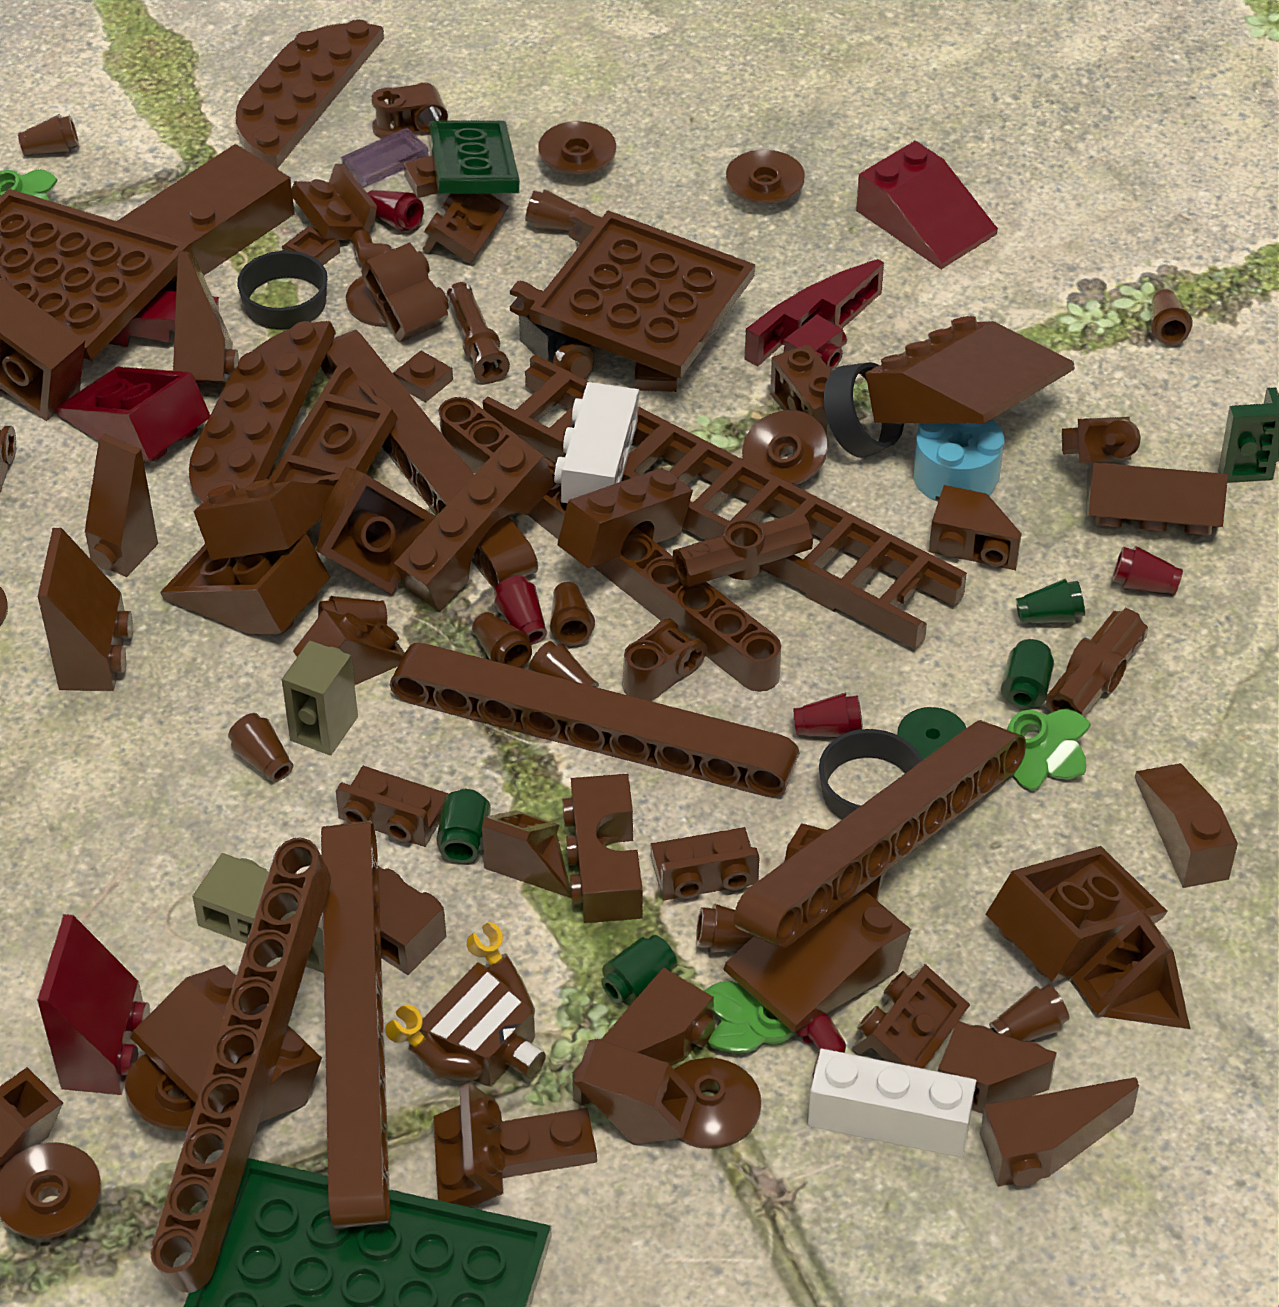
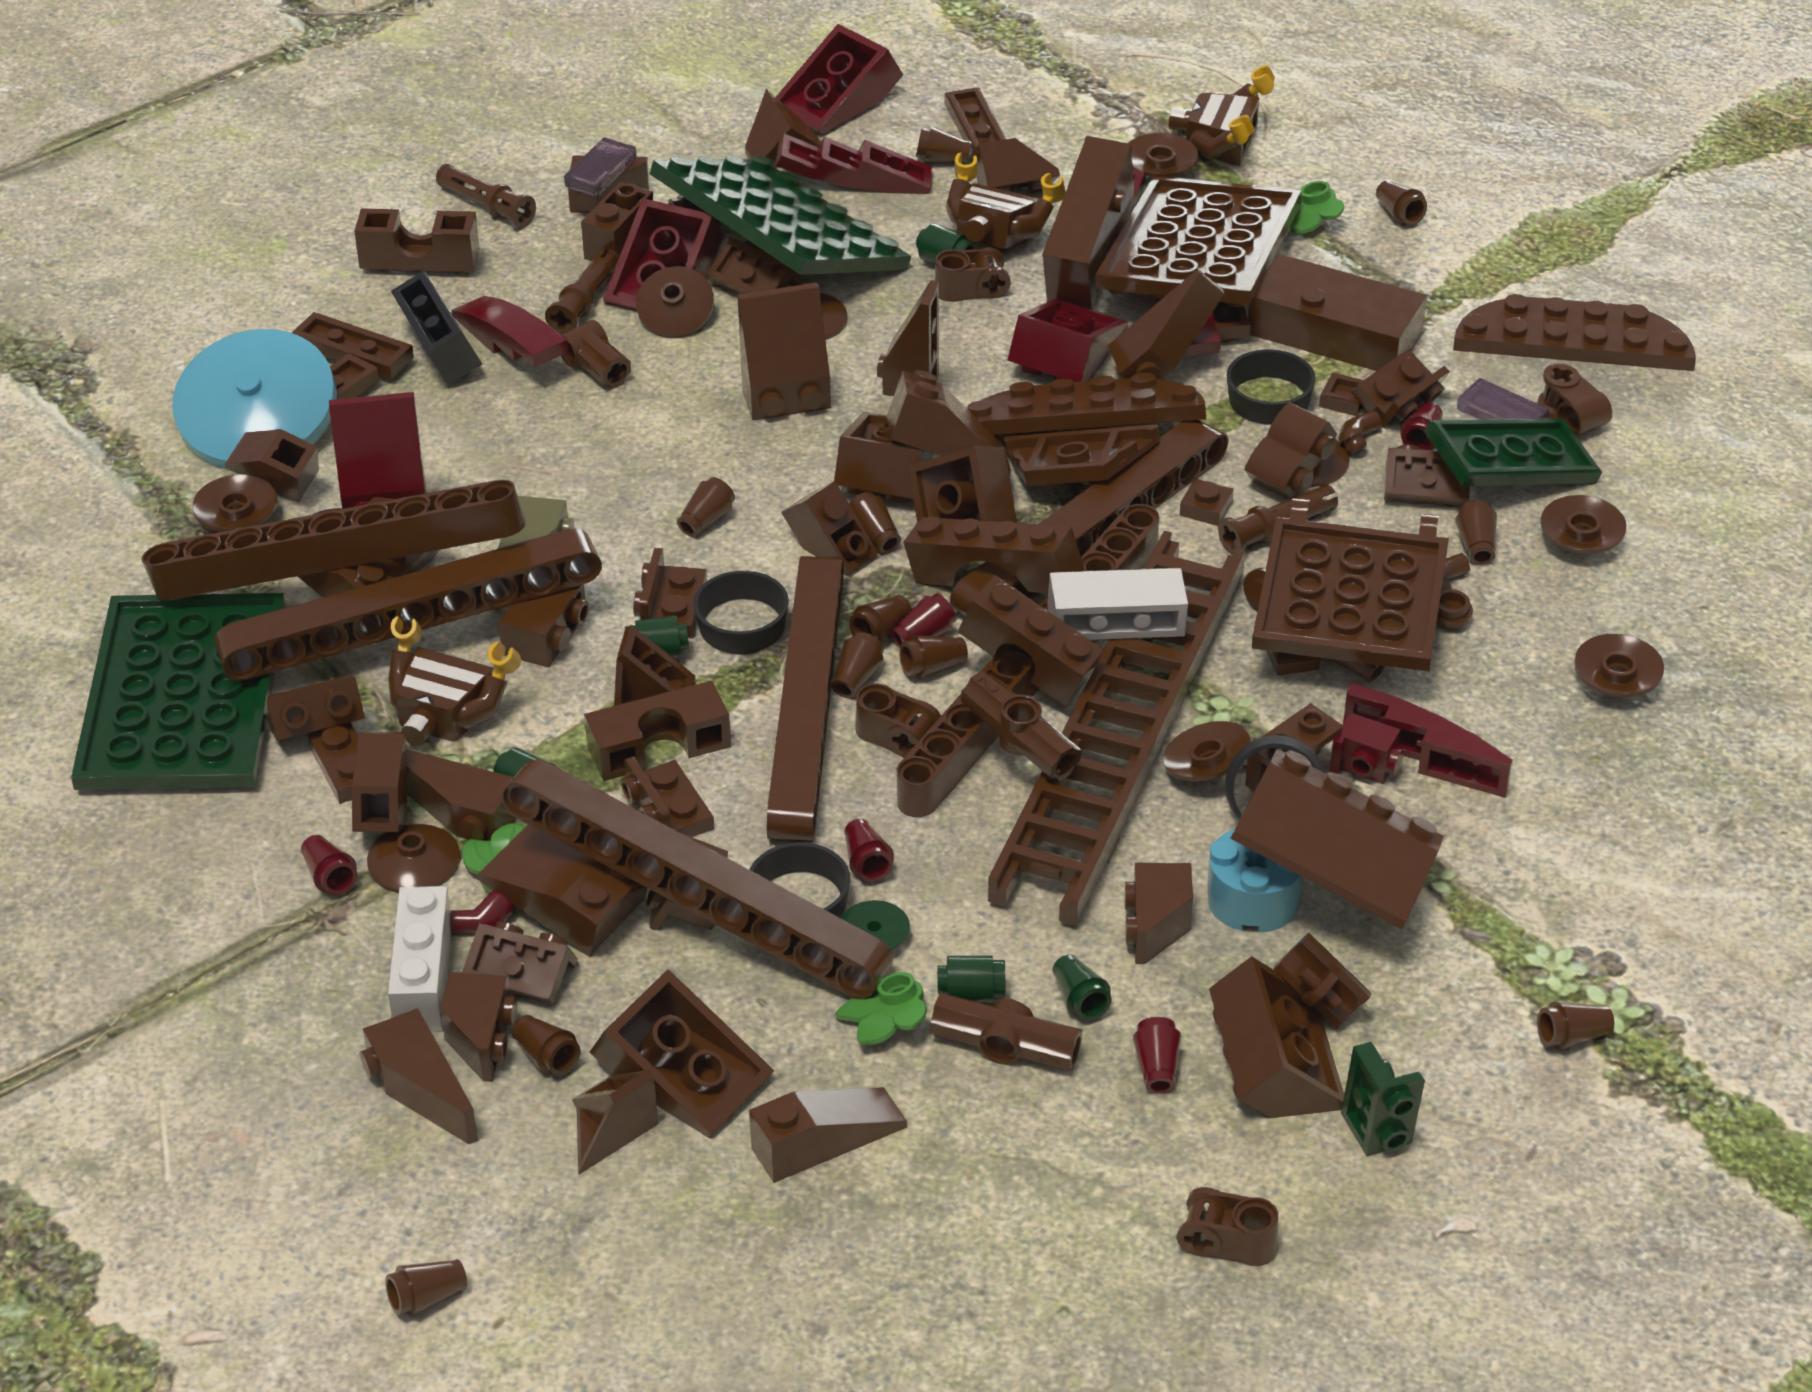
camera: 75 degrees right, 5 degrees down
(320, 697) = (752, 514): olive brick -> none
(445, 714) = (741, 586): none -> black tyre
(711, 1175) = (329, 866): none -> dark red cone
(923, 205) = (1646, 795): dark red slope -> none

